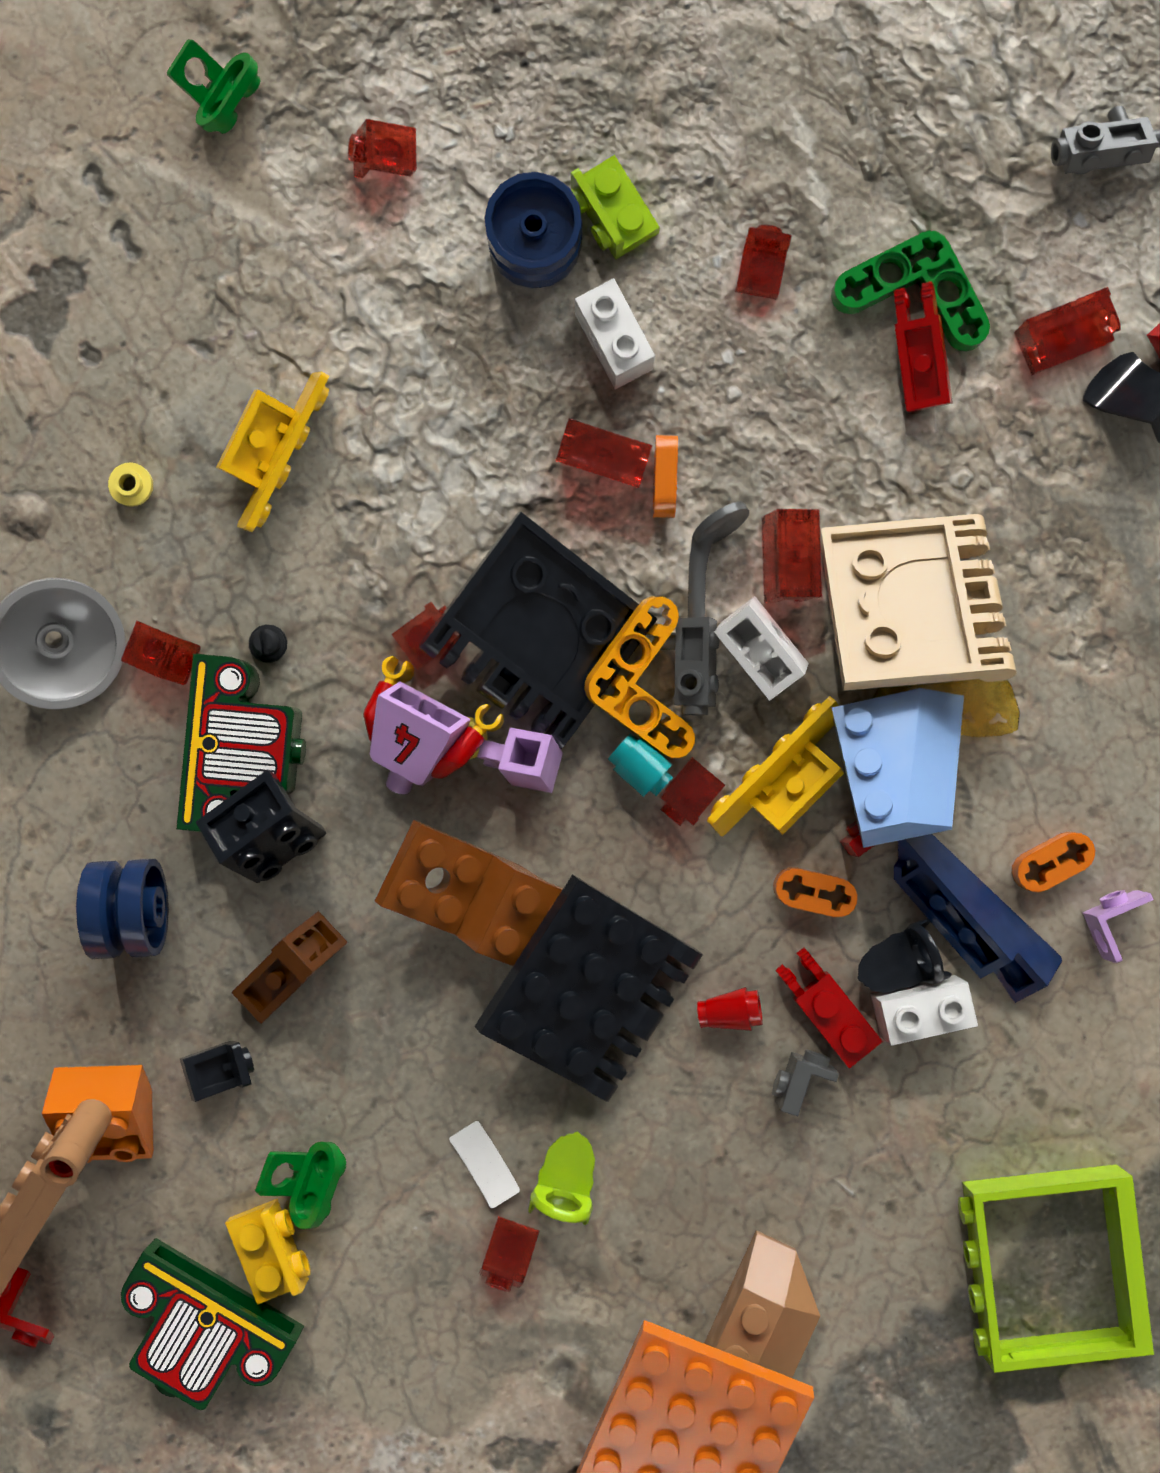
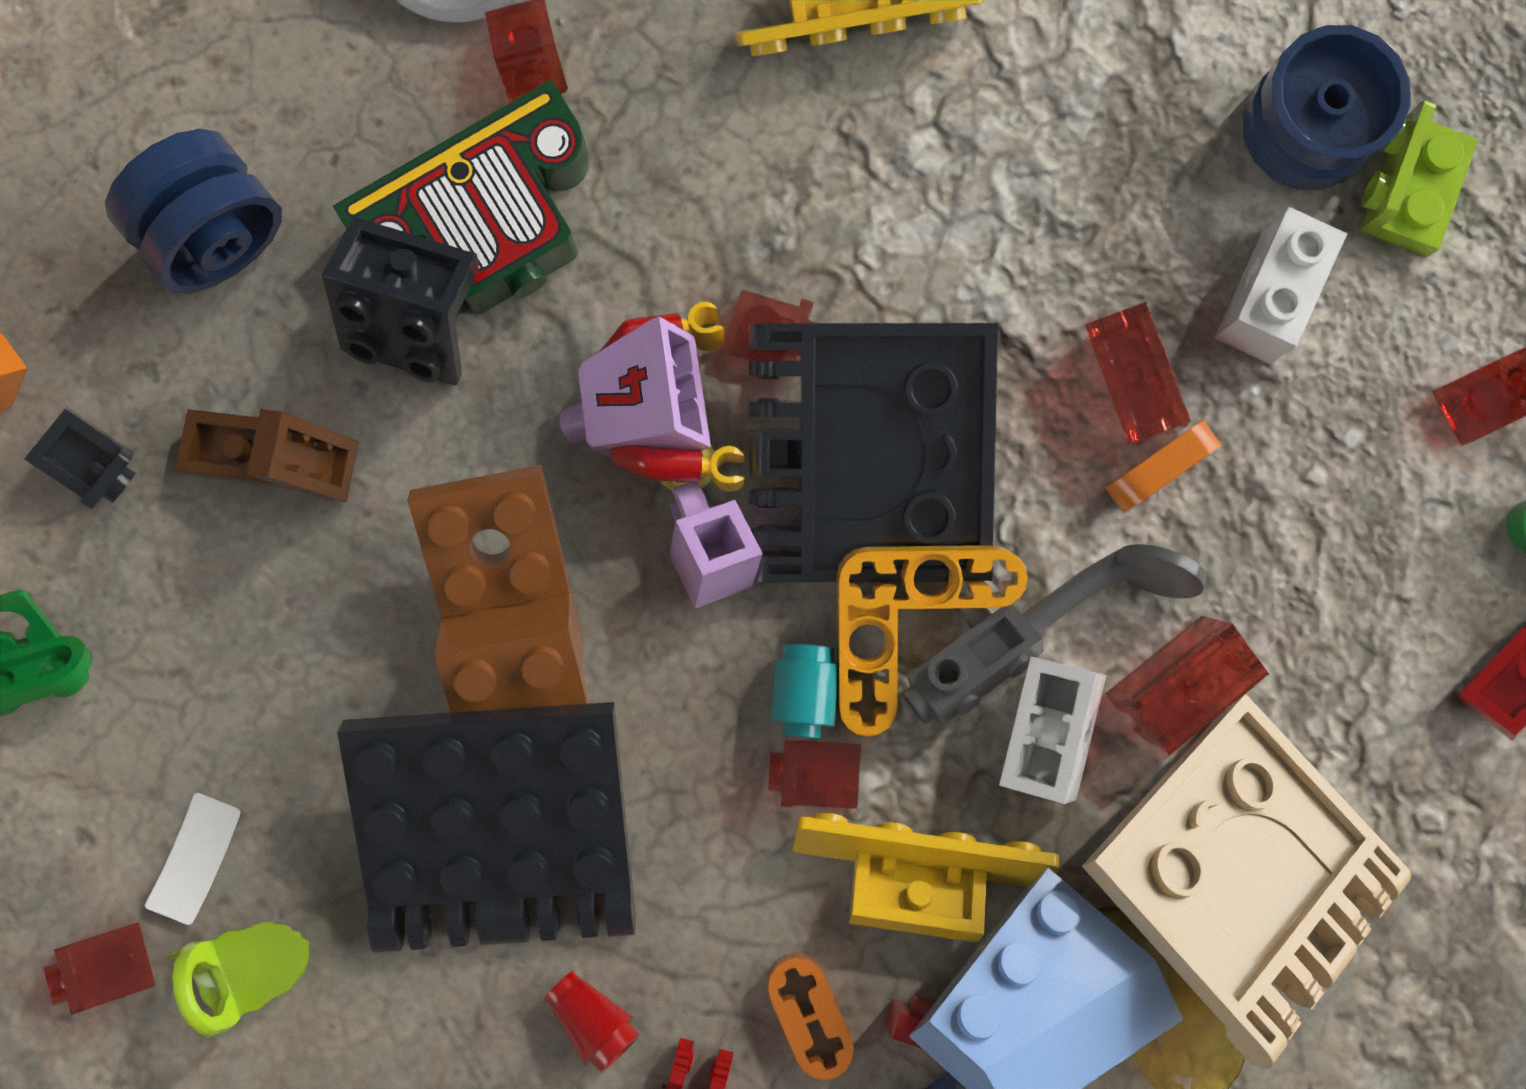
camera: 45 degrees right, 5 degrees down
(268, 643) = (626, 161): black piece -> none

